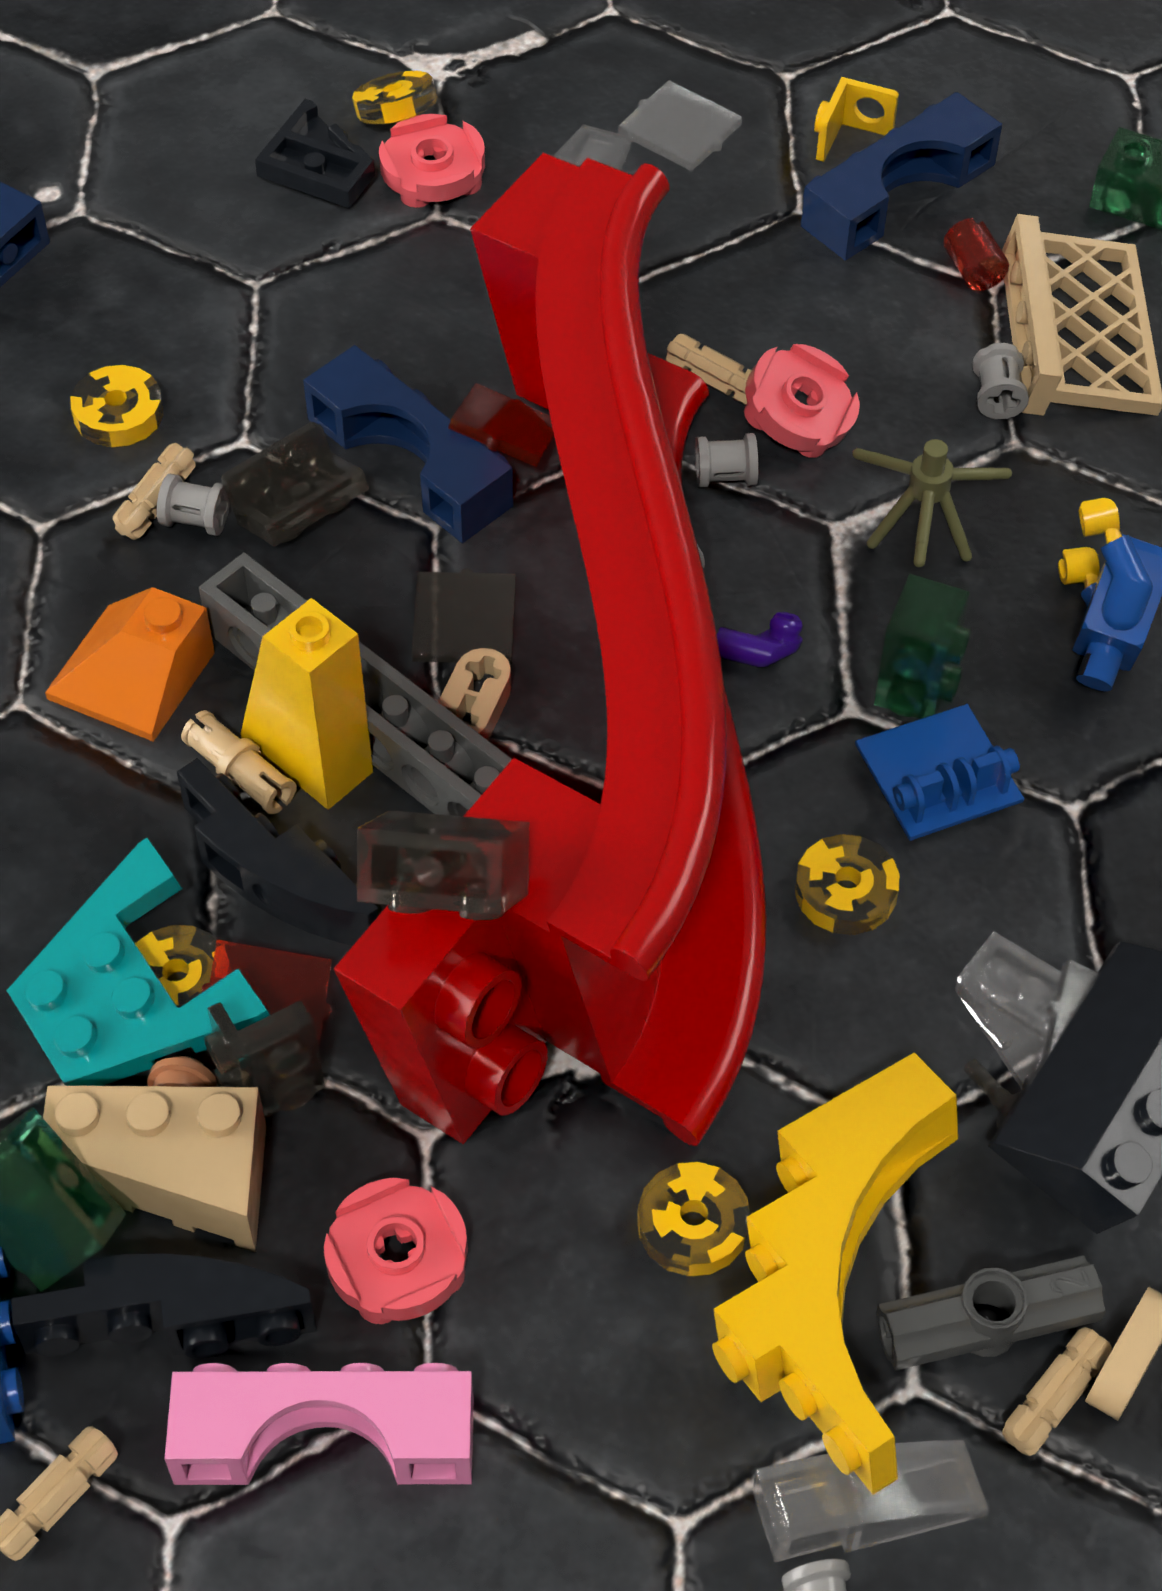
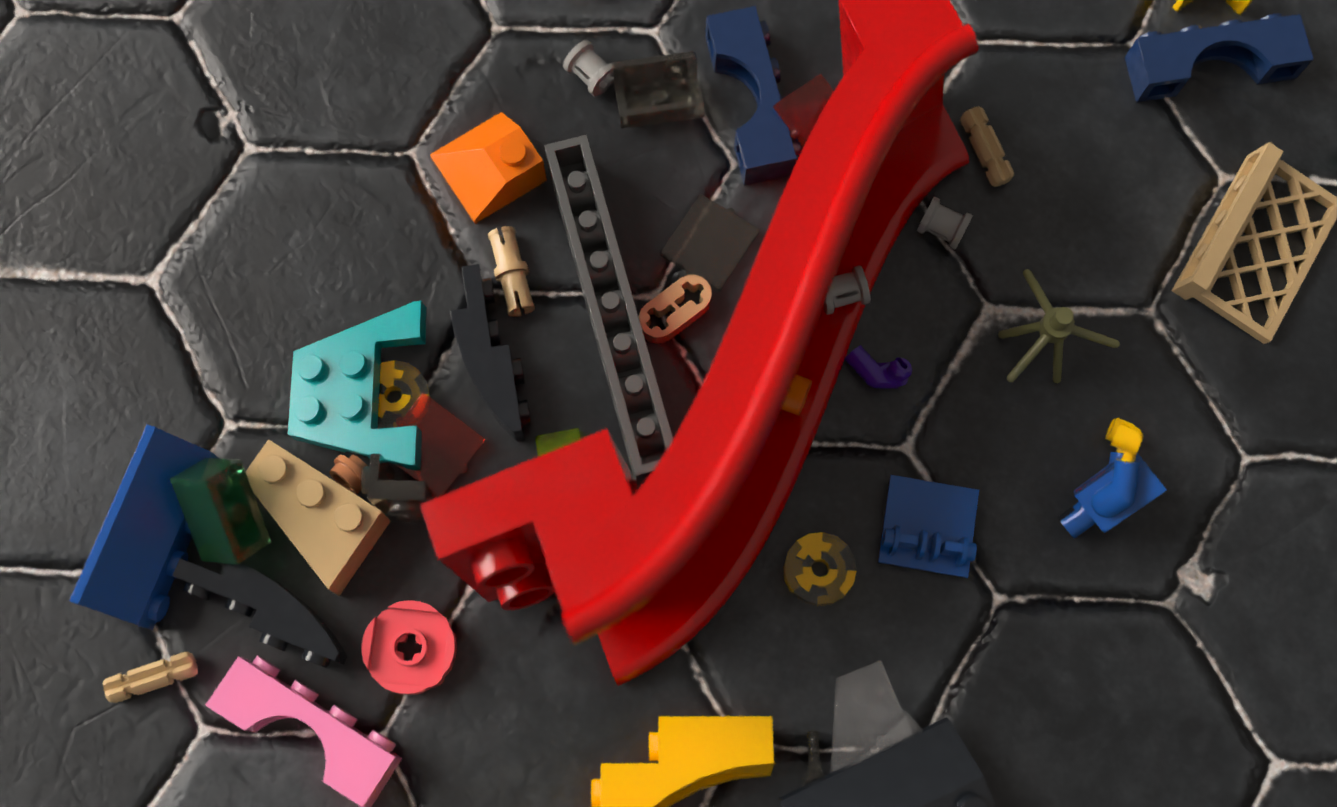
camera: 30 degrees right, 20 degrees up
(133, 516) = (599, 29): tan axle -> none
(311, 704) = (558, 277): yellow slope -> none
(443, 863) = (506, 490): clear smoke brick -> none
(686, 1247) = (566, 722): piece -> none
(788, 421) = (1000, 202): coral plate -> none
(922, 648) = (967, 445): clear green brick -> none
(976, 254) = (1224, 151): clear red piece -> none
(1000, 381) = (1169, 262): light grey bush -> none

